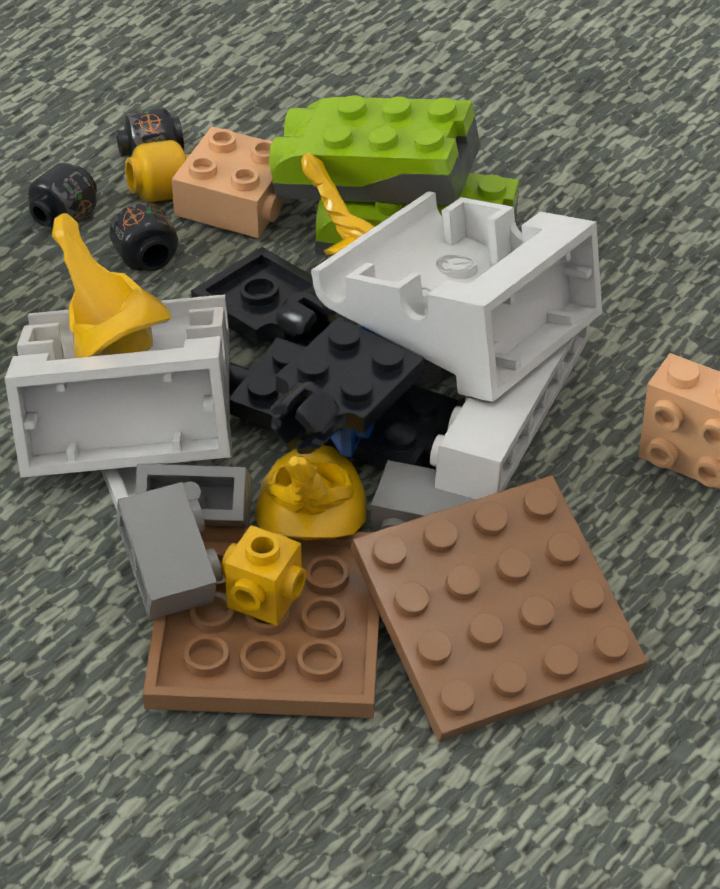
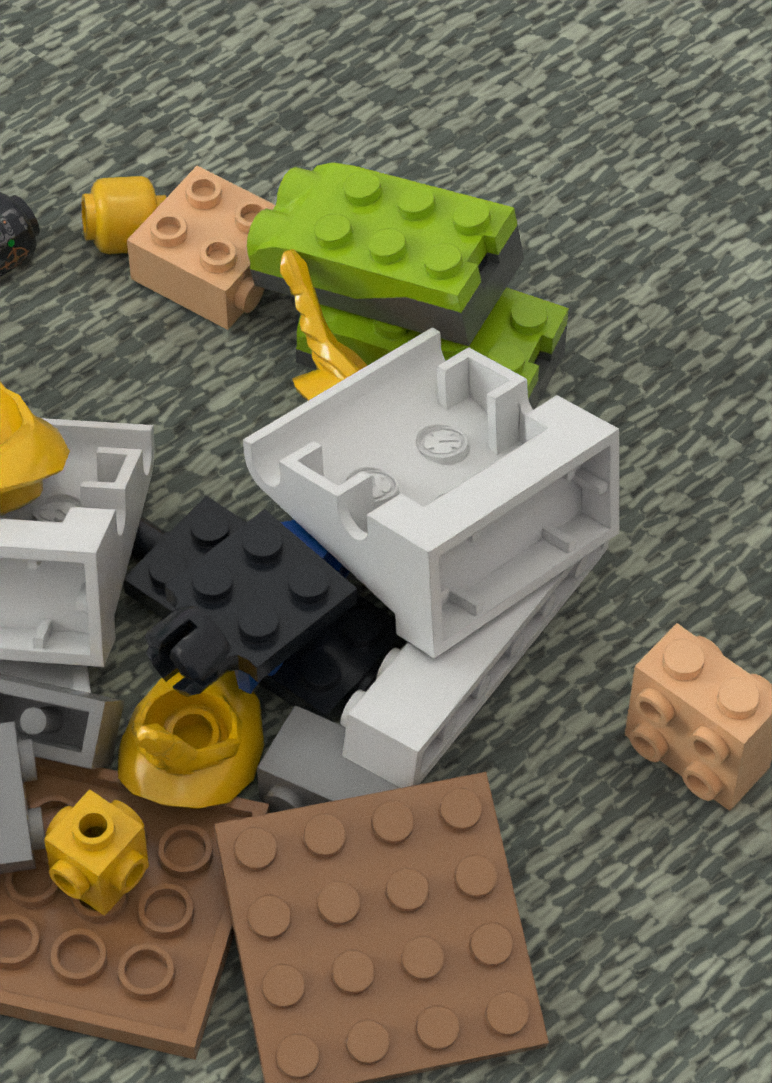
camera: 10 degrees right, 10 degrees up
(143, 236) = (81, 311): black head -> none
(148, 127) = (125, 151): black head -> none
(269, 299) = (202, 427): black plate -> none

